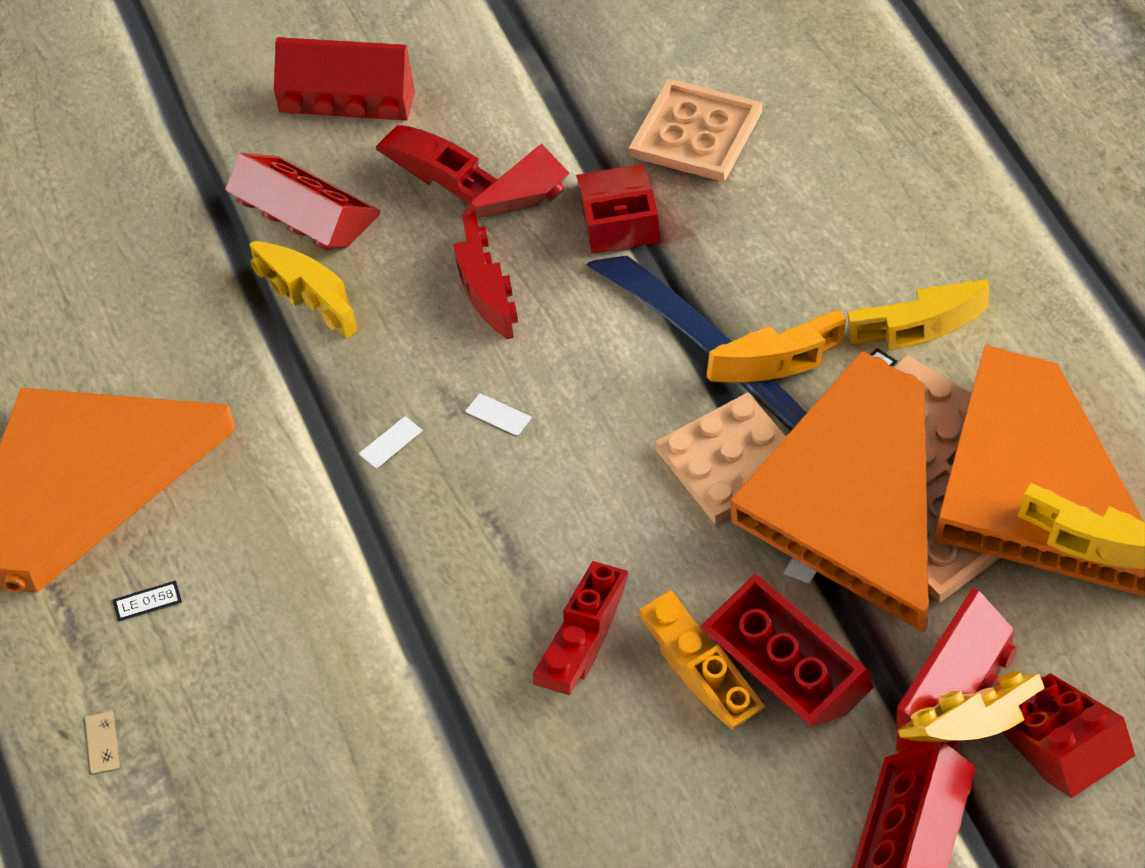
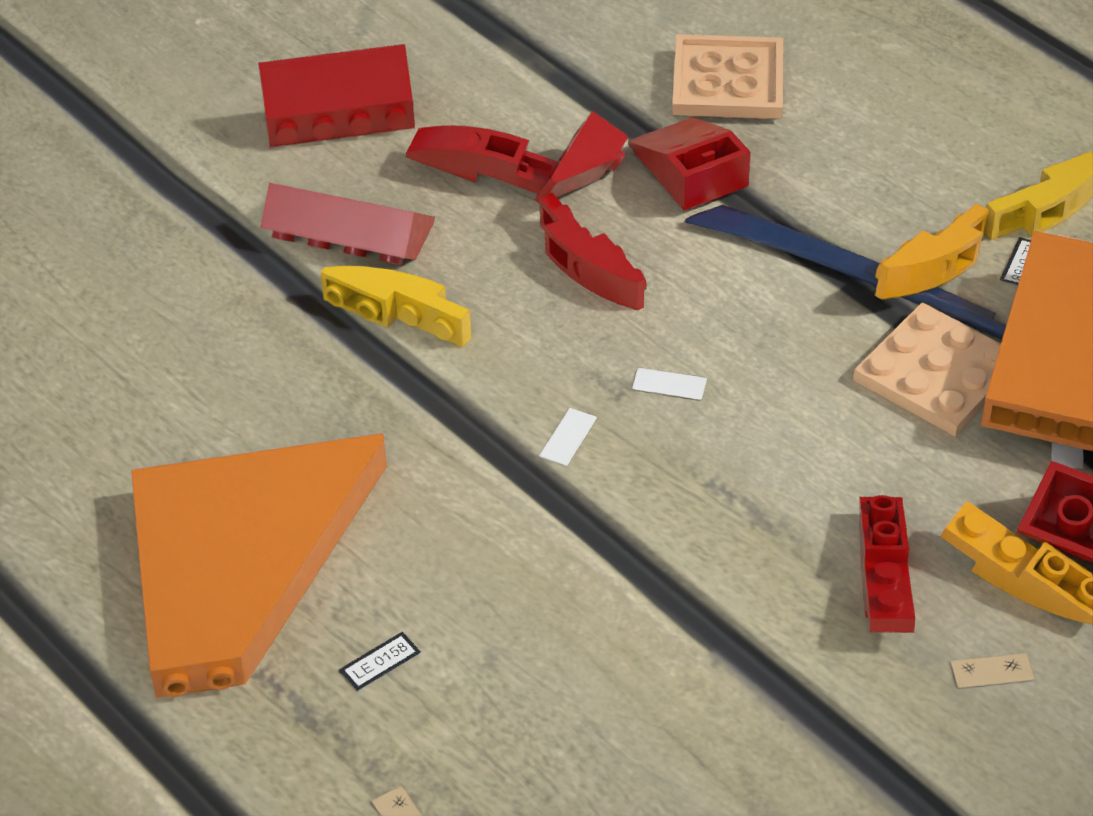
camera: 25 degrees left, 5 degrees down
(630, 745) = (992, 670): none -> tan sticker

